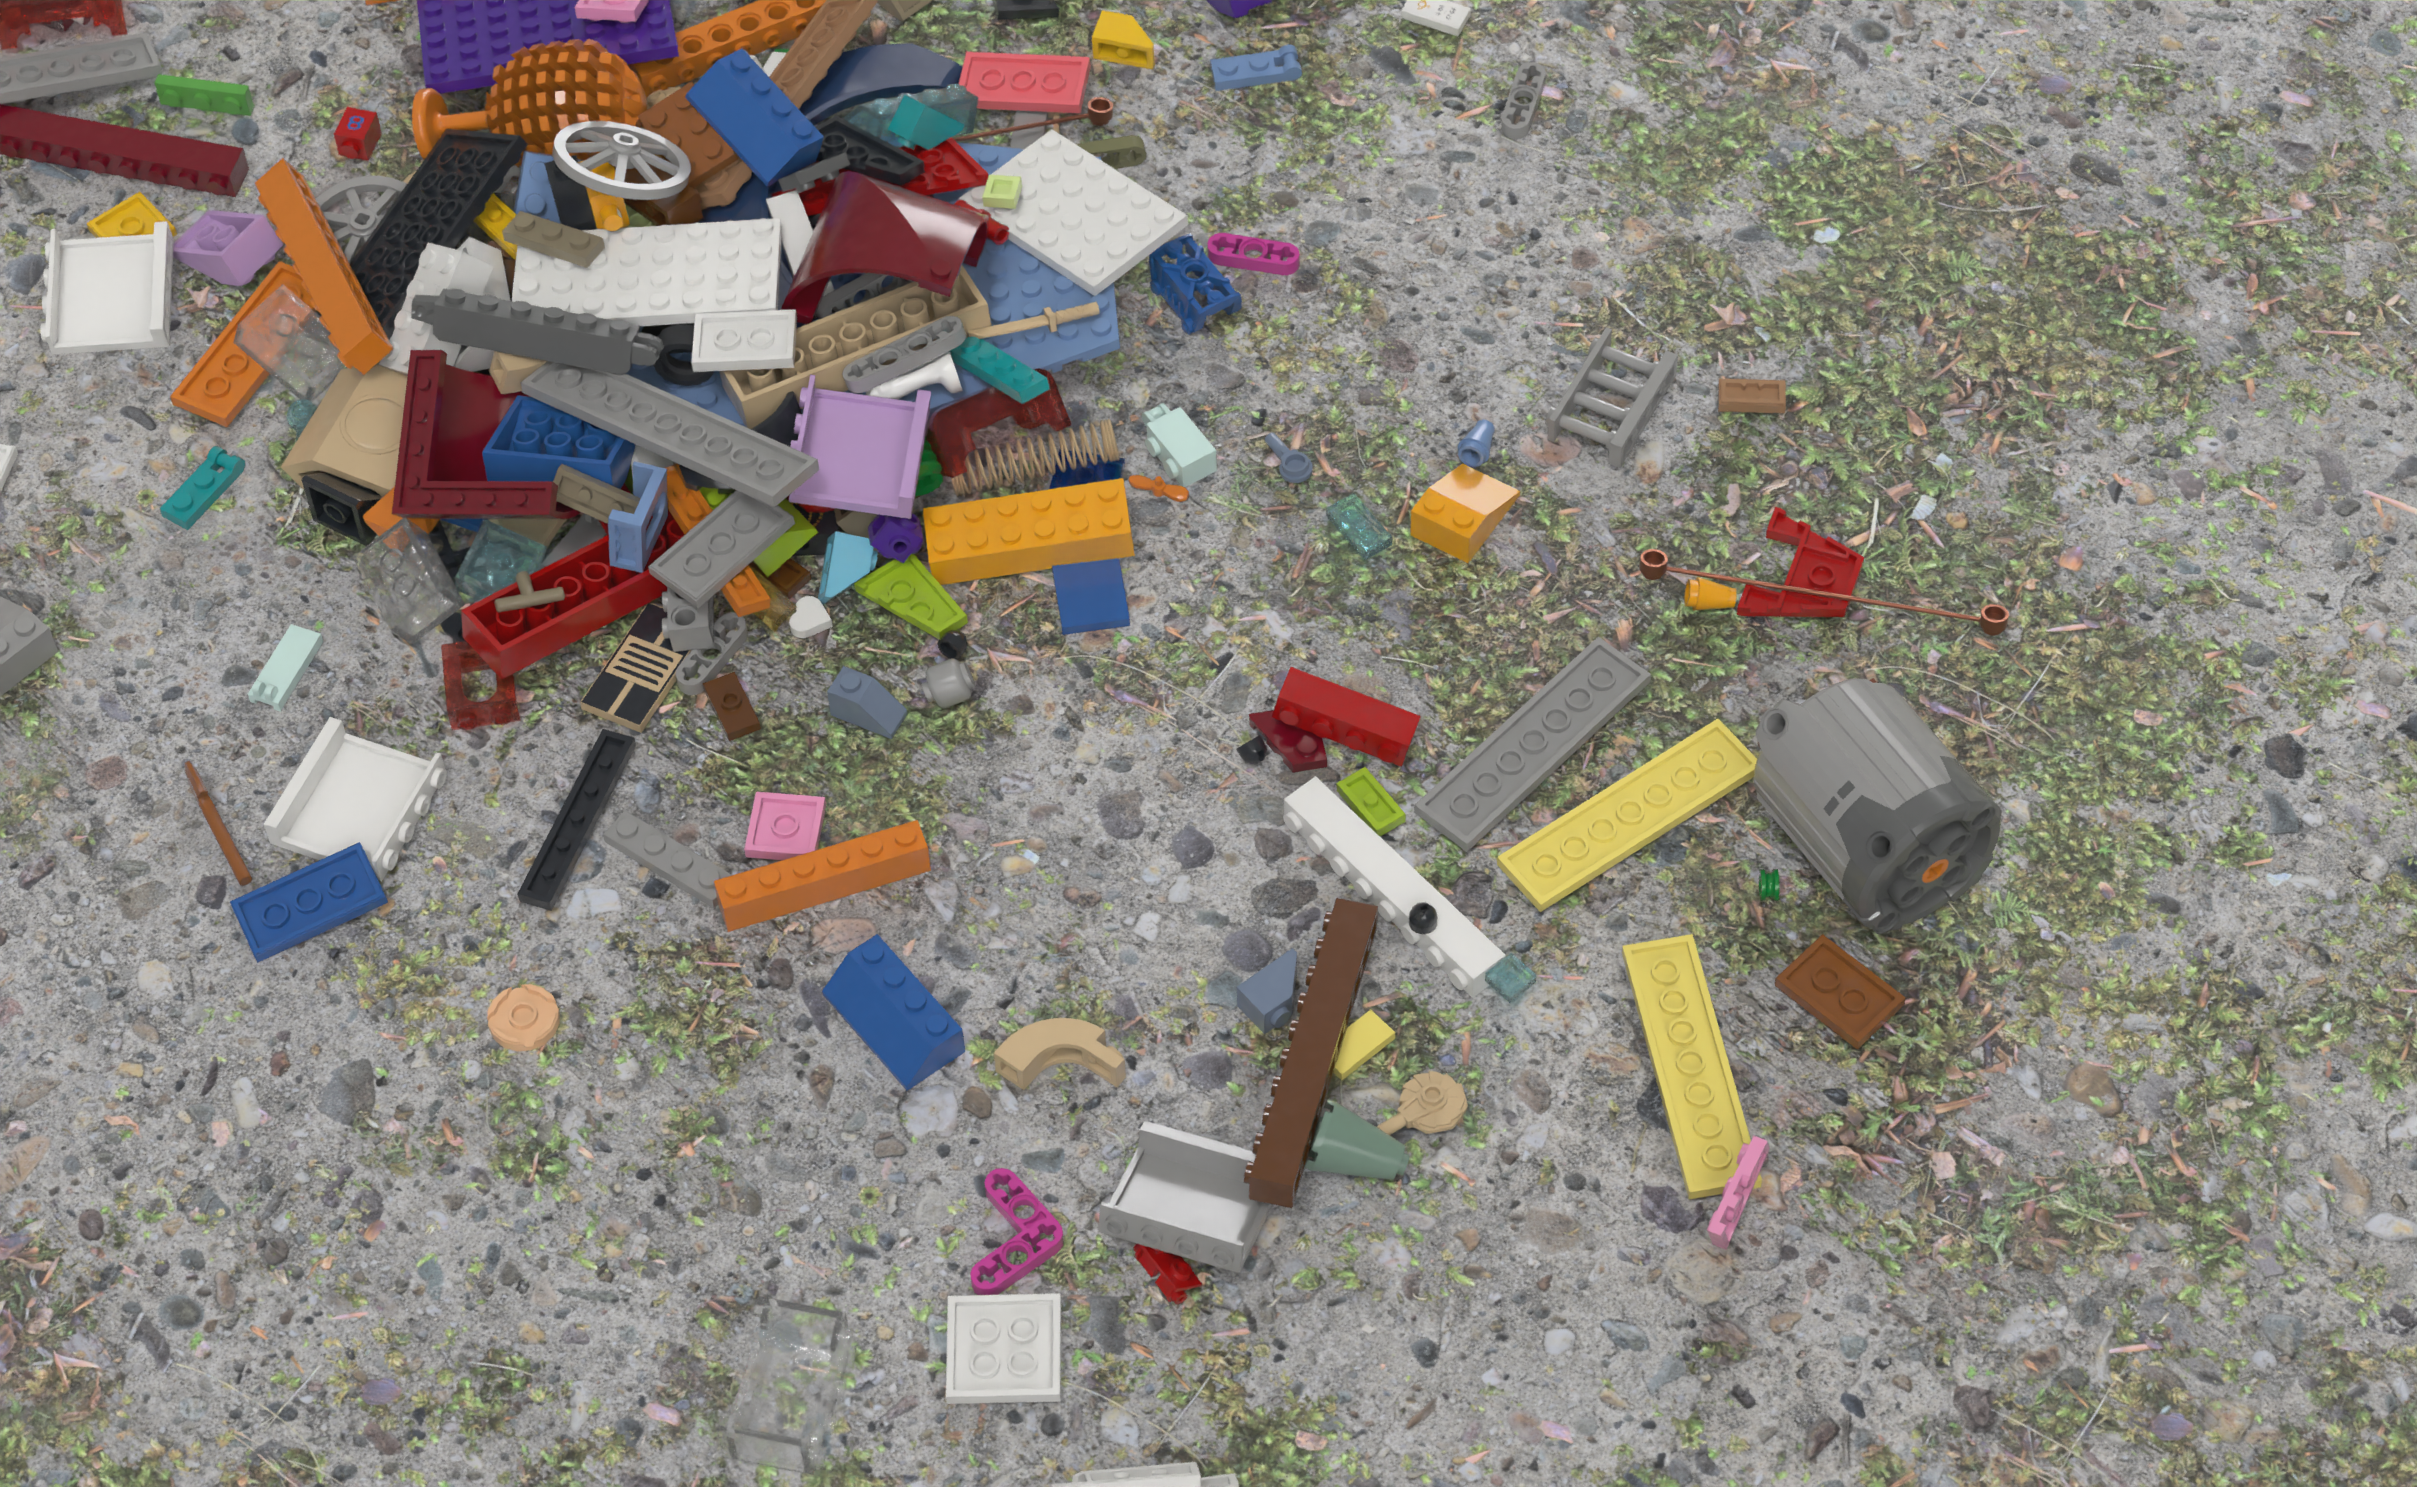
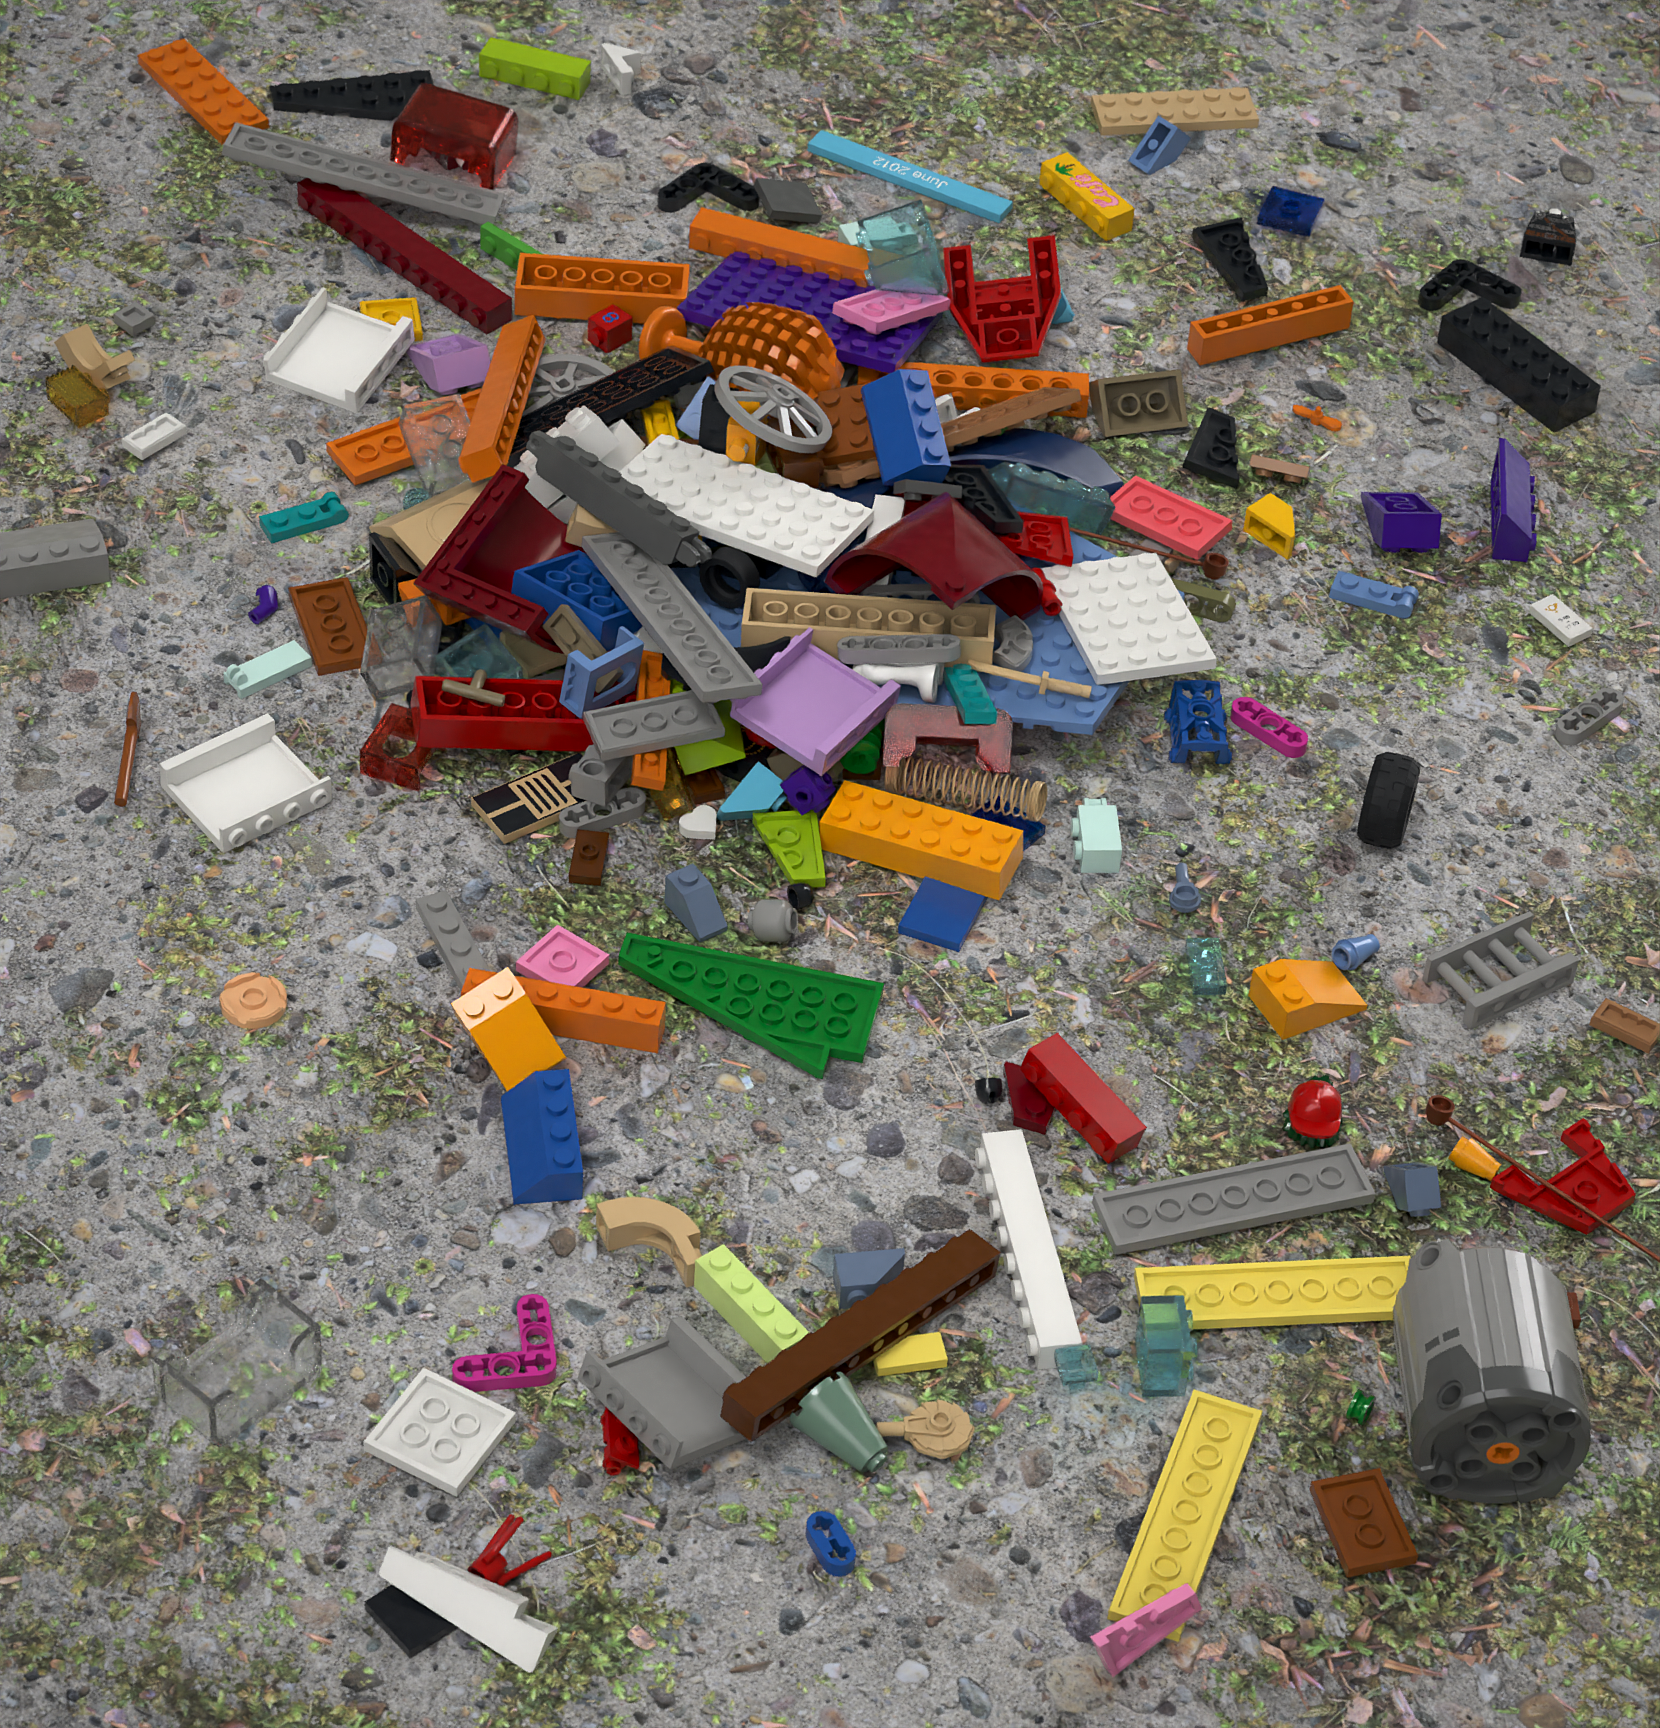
camera: 25 degrees right, 10 degrees down
(235, 596) = (268, 604): none -> dark purple arm
(308, 902) = (153, 838): blue tile -> none
(314, 589) = (330, 624): none -> dark orange tile
(315, 94) = (585, 285): none -> orange brick
(553, 239) = (681, 444): dark tan plate -> none
(576, 819) = (403, 879): black plate -> none
(744, 340) = (775, 580): white plate -> none
(796, 926) = (507, 1029): none -> light orange slope
(922, 125) = (1047, 500): teal slope -> none
(995, 290) = (1015, 644): none -> light grey tile
(1002, 191) = (1074, 573): yellowish green plate -> none
(1013, 765) = (778, 1005): none -> green wing
(1140, 1447) = (492, 1564): none -> red plant
(1159, 487) = (1059, 861): orange piece -> none
(1196, 1079) = (746, 1303): none -> yellowish green brick
(1371, 801) = (1059, 1176): lime plate -> none
(1412, 1261) = (823, 1546): none -> blue beam
(1417, 279) = (1388, 800): none -> black tyre
(1428, 920) = (1030, 1278): black hinge -> none
(1548, 623) = (1314, 1113): none -> red hair
(1575, 919) = (1164, 1346): none -> clear light blue brick
(1677, 649) = (1414, 1187): none -> sand blue slope

